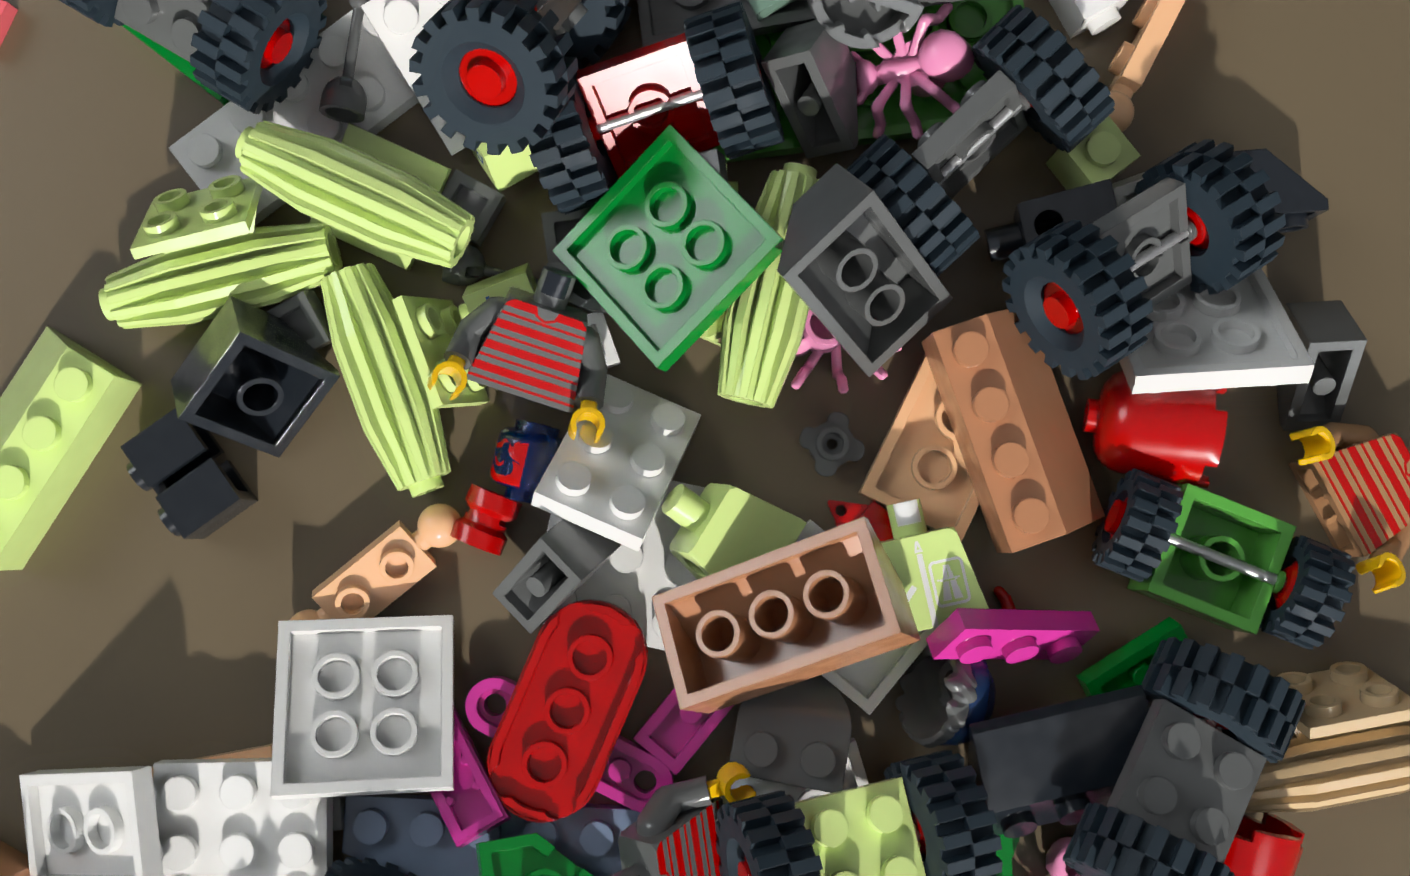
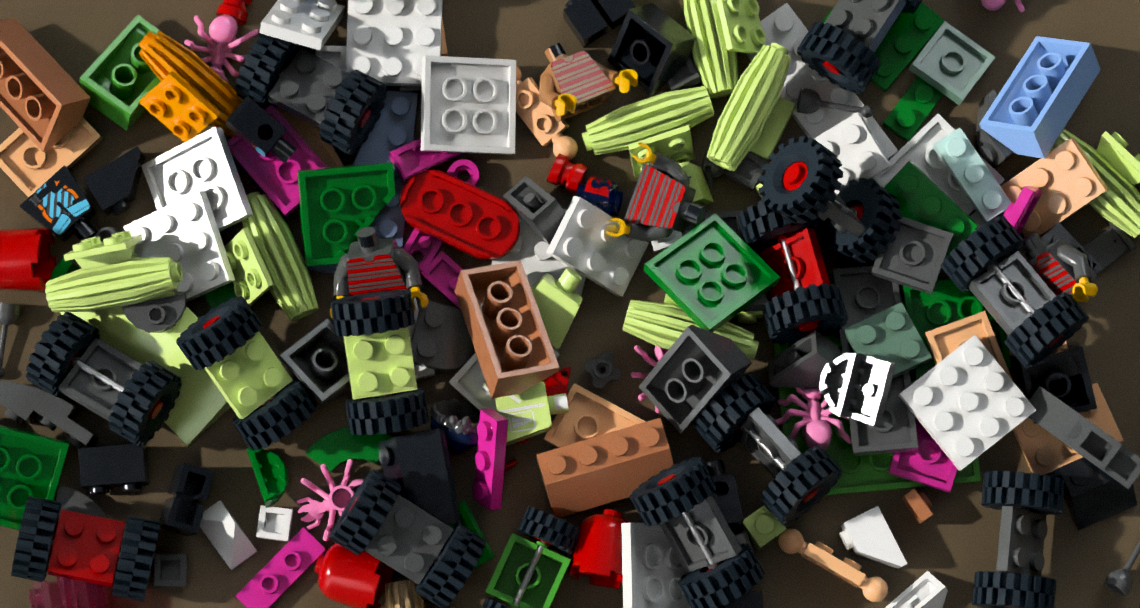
camera: 90 degrees right, 5 degrees down
(320, 505) = (579, 82): none -> torso

